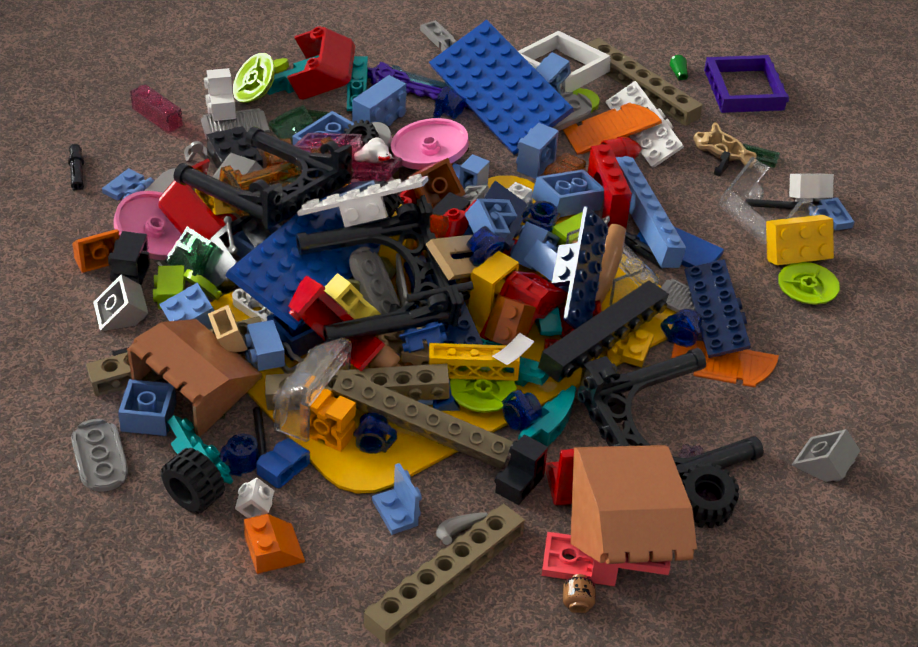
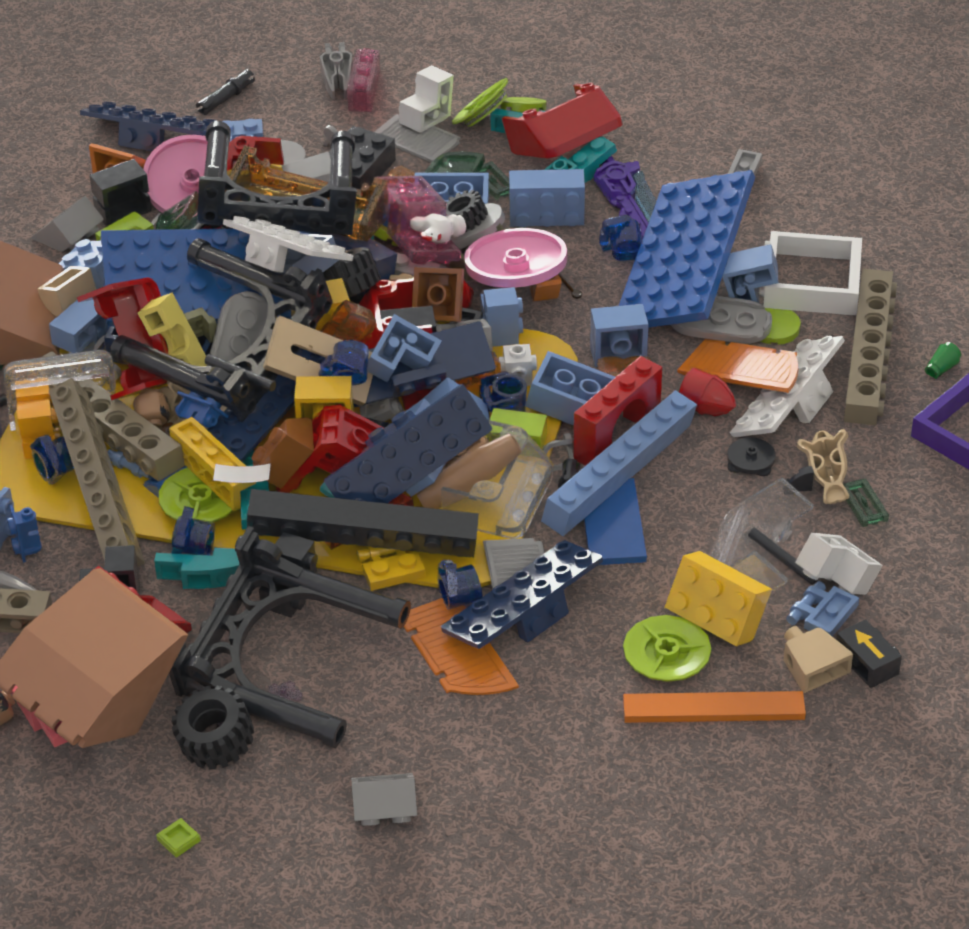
camera: 55 degrees right, 0 degrees up
(71, 216) = (145, 128): none -> dark blue bracket
(130, 112) = (336, 68): none -> light grey hinge
(430, 486) = (21, 524): none -> blue hinge
(680, 169) = (751, 456): none -> black piece
(777, 567) = (178, 837): none -> lime tile
(865, 295) = (714, 706): none -> orange tile
(866, 238) = (815, 657): none -> tan torso
(881, 219) = (873, 656): none -> black brick

